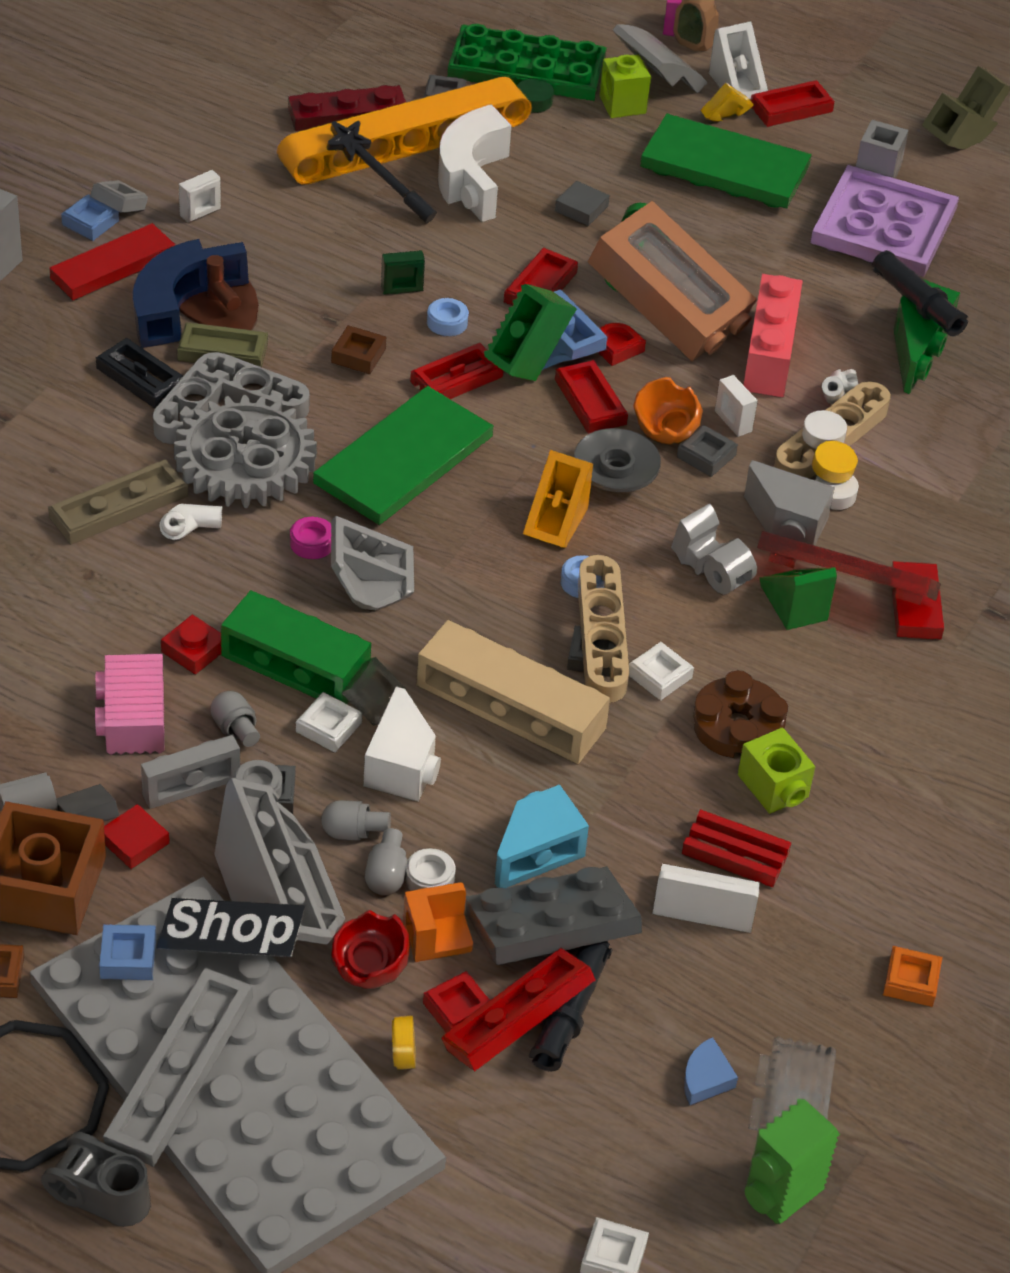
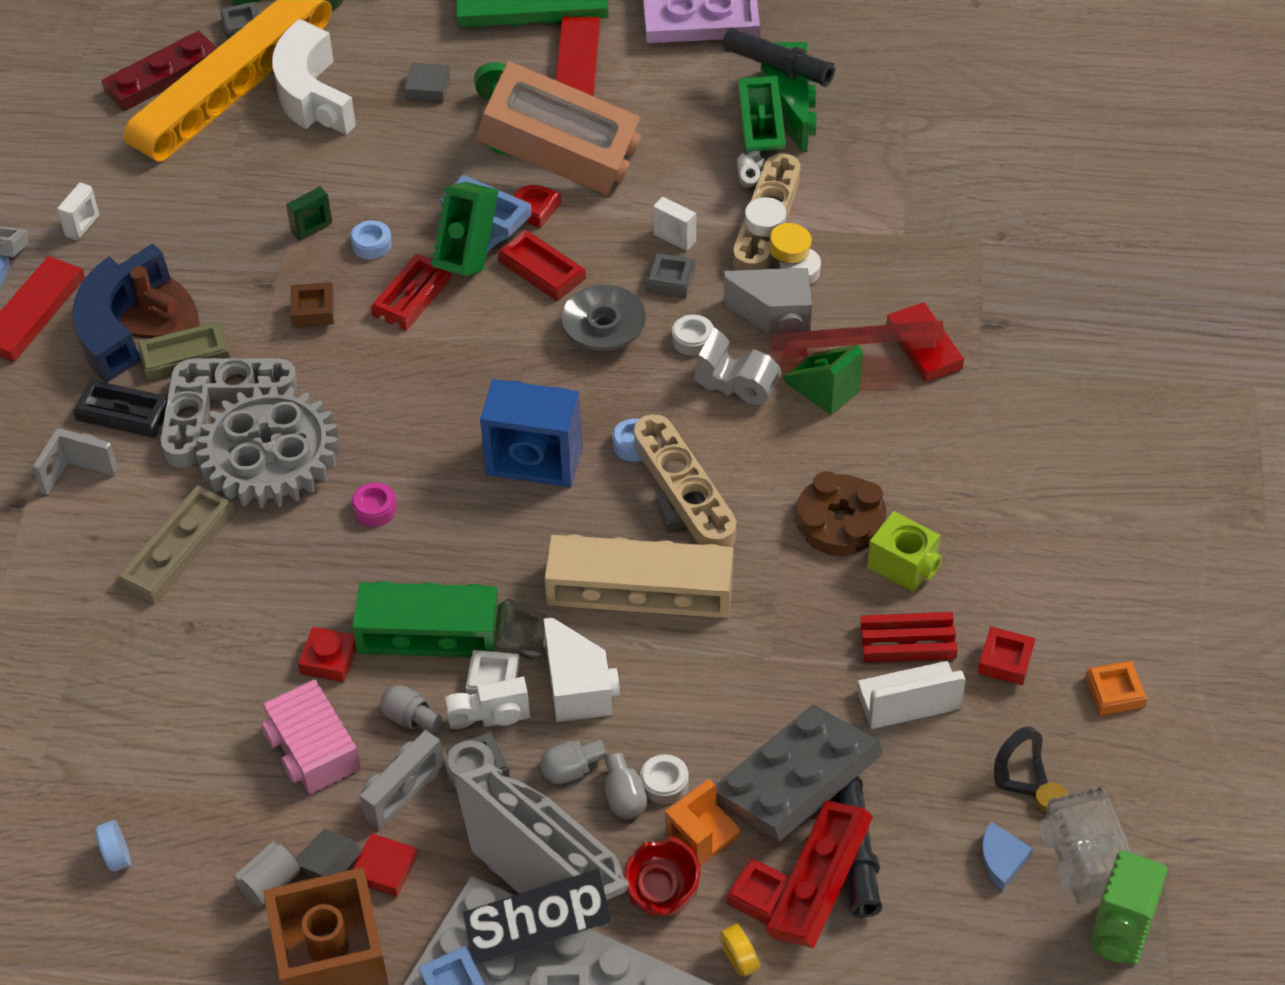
camera: 20 degrees left, 5 degrees up
(71, 386) = (76, 449): none -> light grey bracket
(188, 517) = (251, 532): white arm -> none
(312, 741) = (495, 704): none -> white plate
(351, 142) = (198, 105): black piece -> none
(371, 565) = (446, 509): light grey slope -> none
(403, 455) = (411, 391): green tile -> none
(484, 527) = (531, 432): none -> blue brick
(540, 837) = (743, 701): medium azure slope -> none
(545, 271) = (433, 171): red tile -> none
(560, 499) = (578, 370): light orange slope -> none
(660, 670) = (751, 499): white tile -> none
(667, 411) = (622, 253): orange hair -> none
(691, 501) = (691, 334): none -> white tile
(739, 230) = (579, 53): none -> red tile
(749, 1000) = (1044, 791): none -> black piece
(772, 335) = (669, 144): coral brick -> none
(819, 901) = (1006, 655): none -> red plate
(875, 339) = (760, 114): none -> green slope

